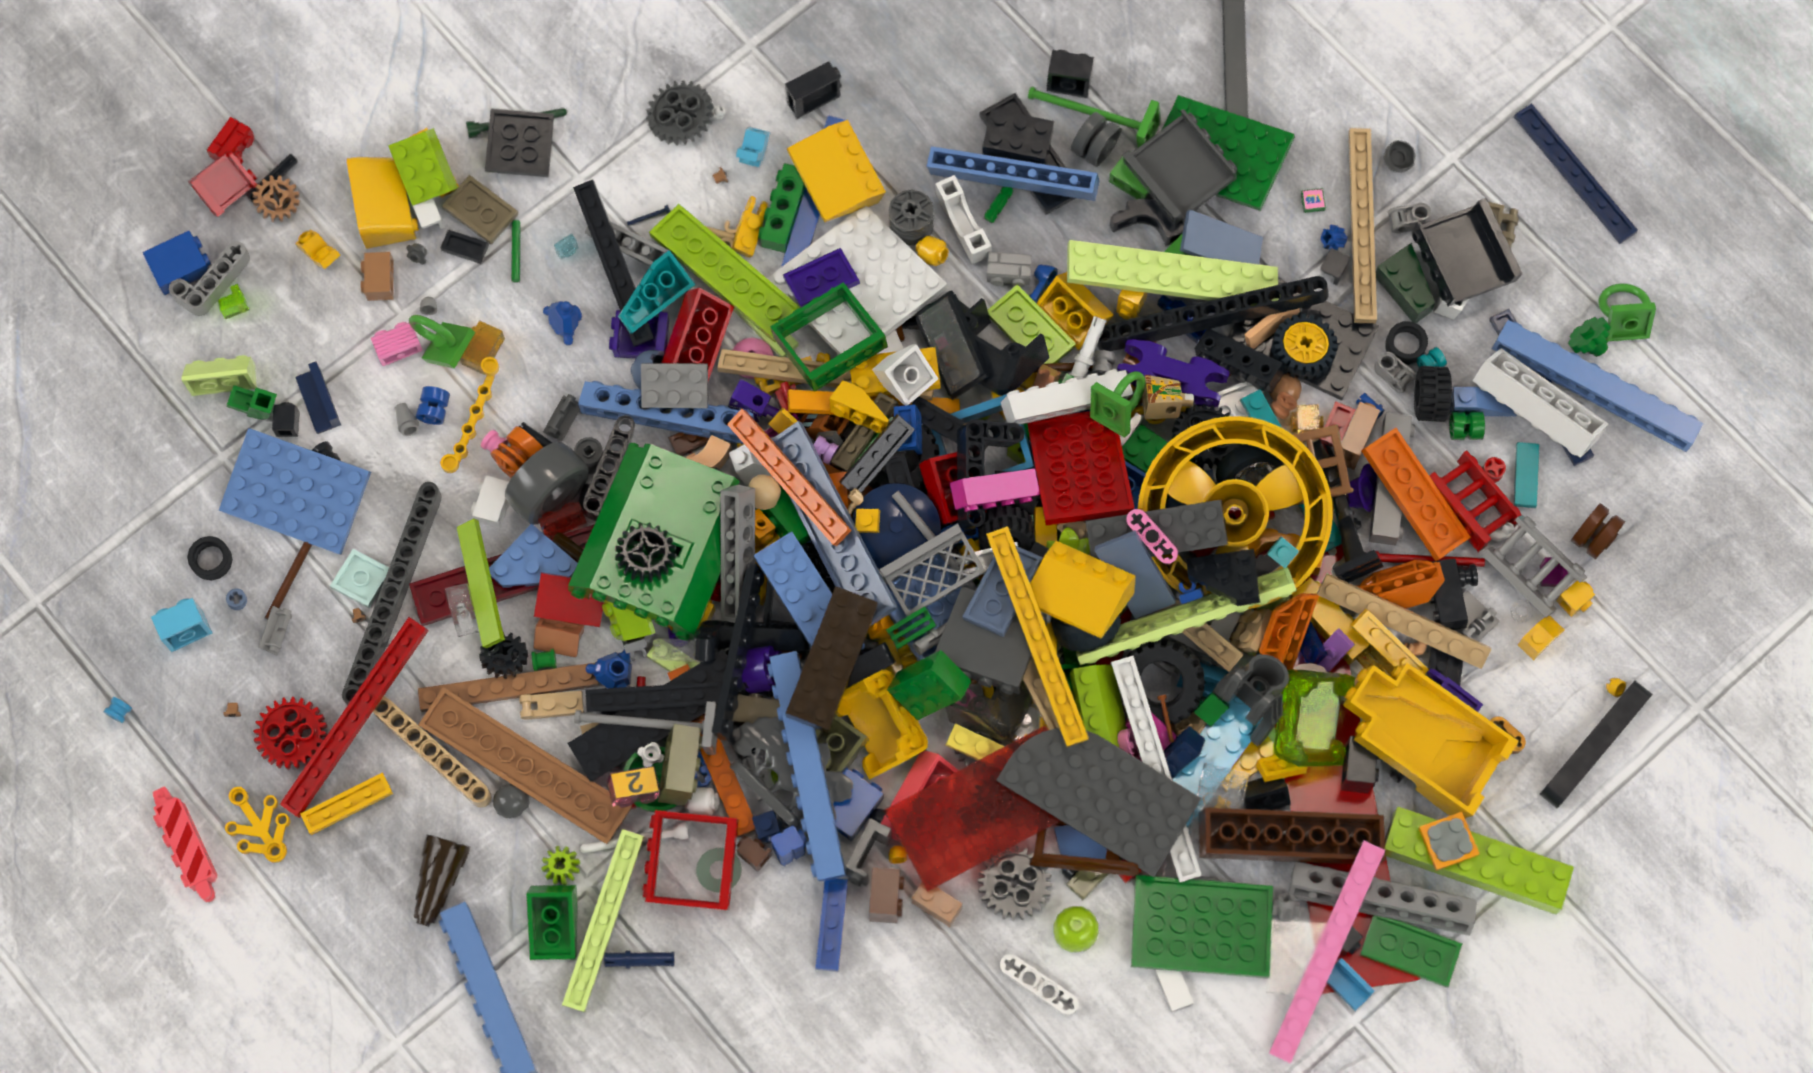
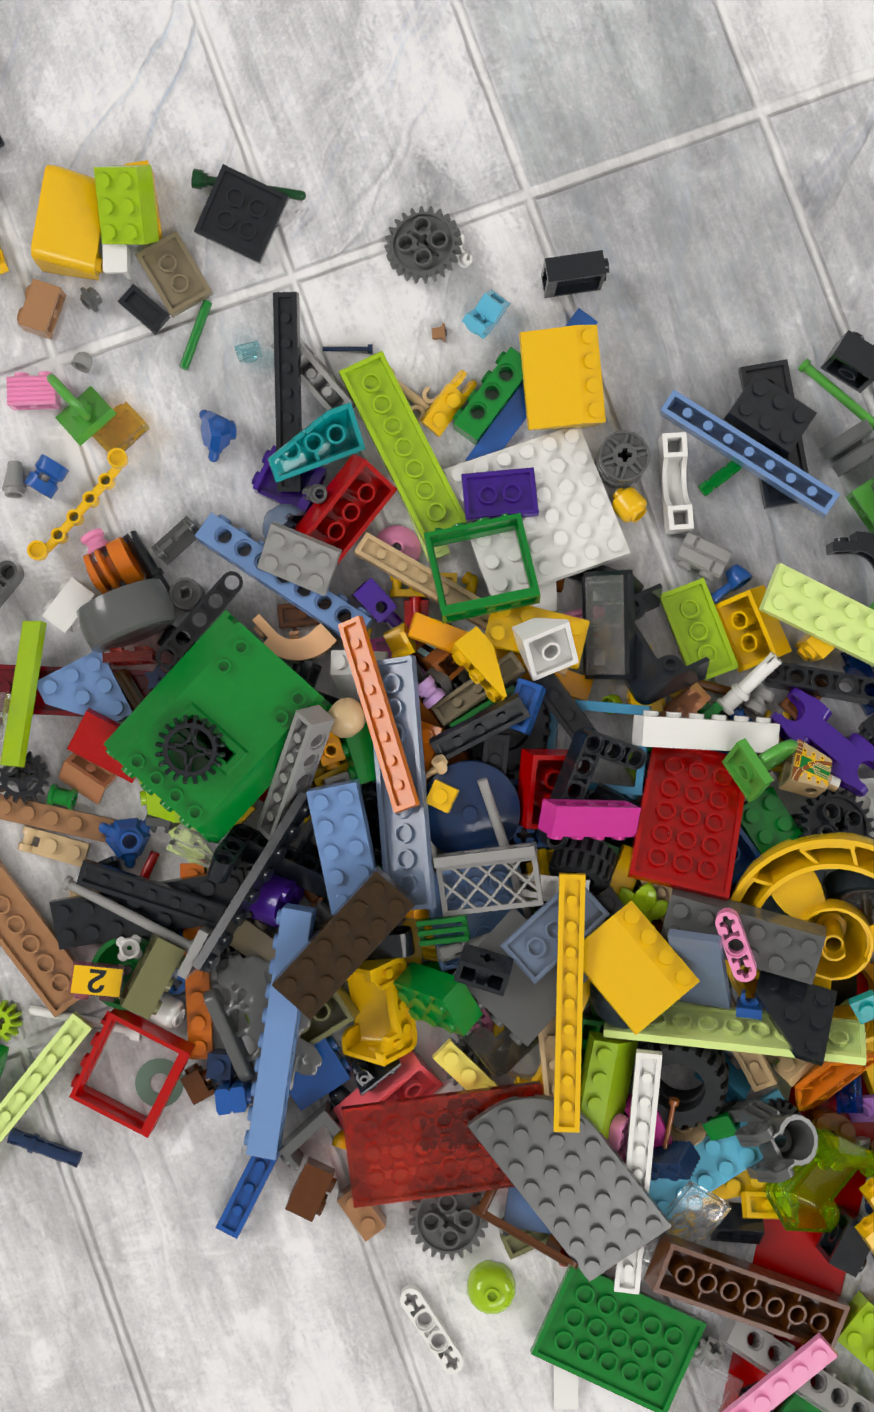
camera: 15 degrees right, 15 degrees up
(586, 530) = (155, 676): none -> dark blue piece
(668, 330) = (318, 497): none -> dark grey pin
(896, 783) = (370, 1074): none -> black hinge
(956, 635) = (484, 969): none -> black brick

